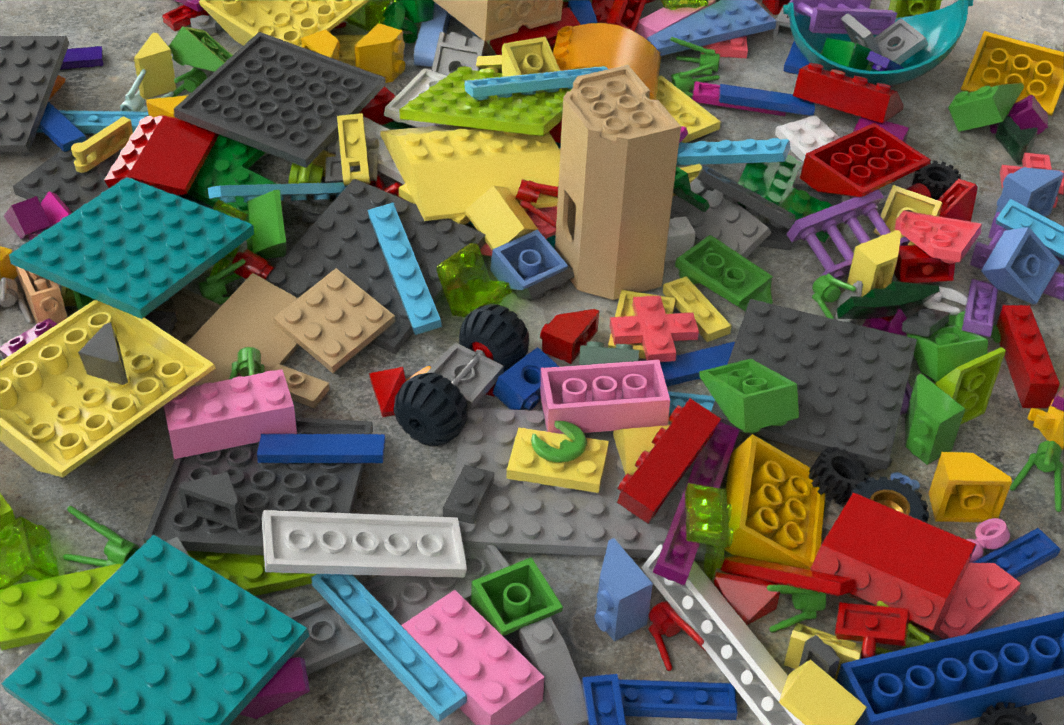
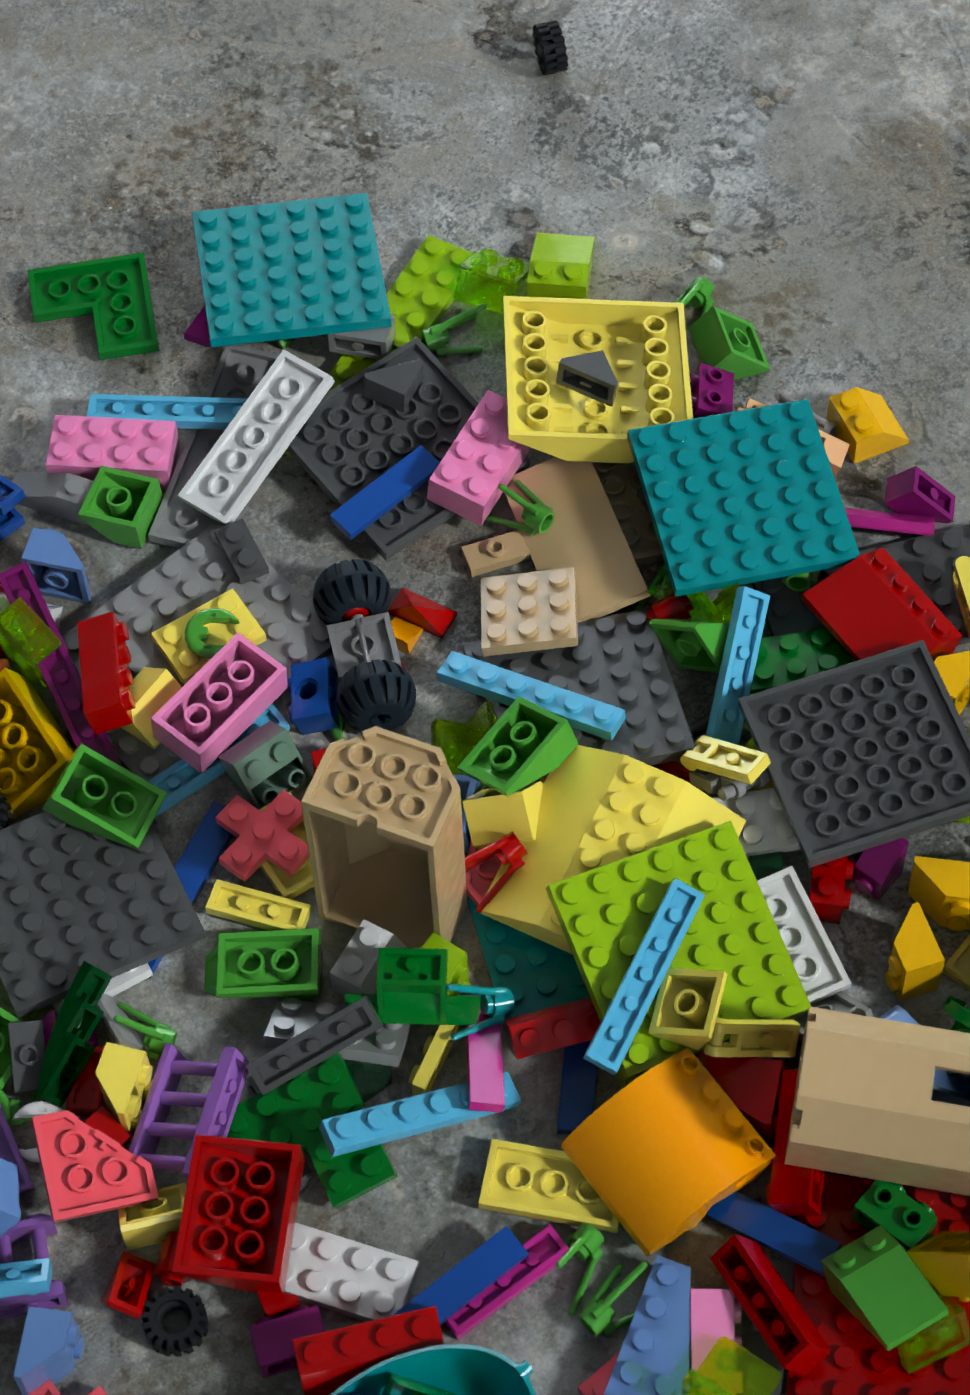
camera: 140 degrees right, 15 degrees up
(463, 214) = (520, 748): none -> bright green slope

